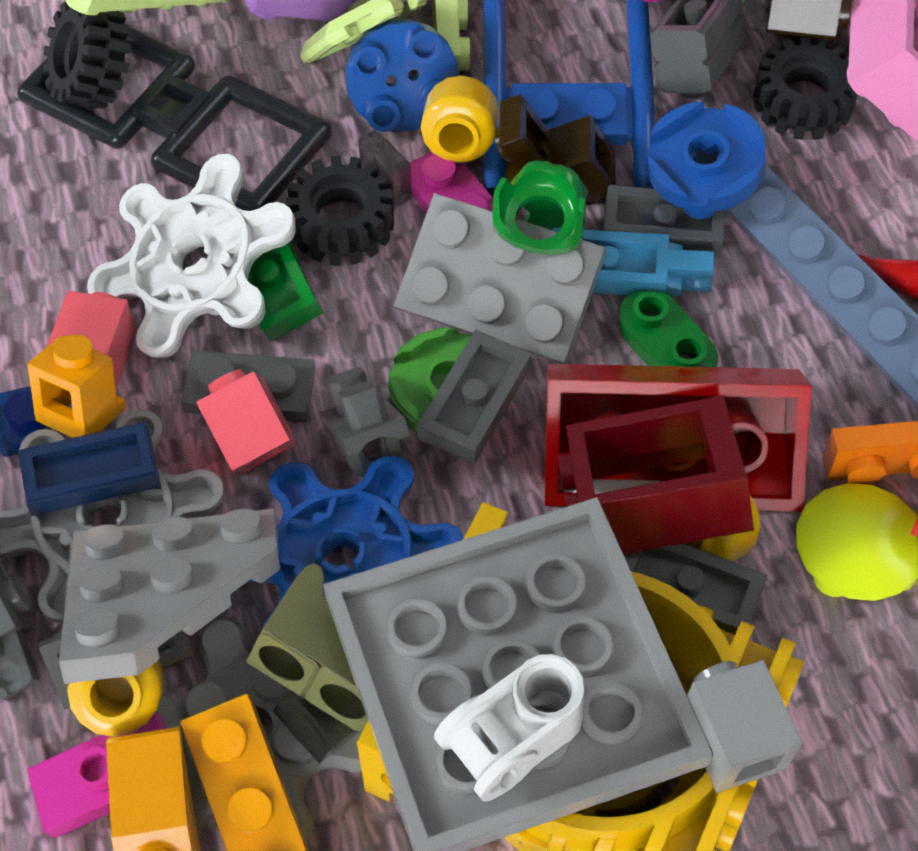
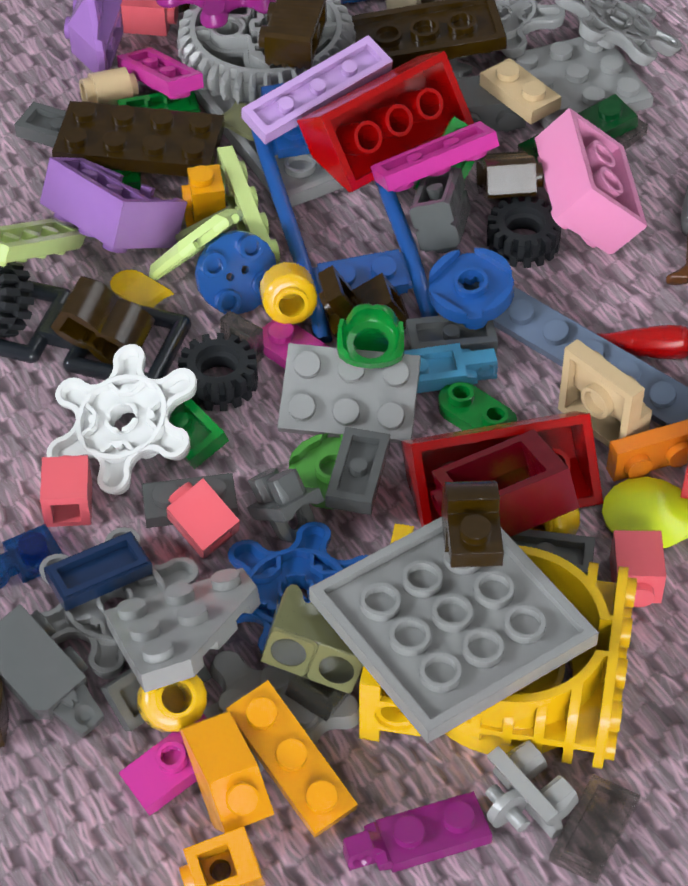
camera: 15 degrees left, 10 degrees down
(78, 375) = (72, 509): light orange brick -> none
(208, 110) = (101, 320): none -> dark brown brick
(281, 71) = (138, 288): none -> yellow piece
(505, 736) = (465, 641): white piece -> none
(567, 552) = (472, 523): none -> dark brown brick
(743, 723) = (614, 611): light grey brick -> none
(824, 622) = (645, 558): none -> coral brick
(847, 369) = (604, 391): none -> tan plate

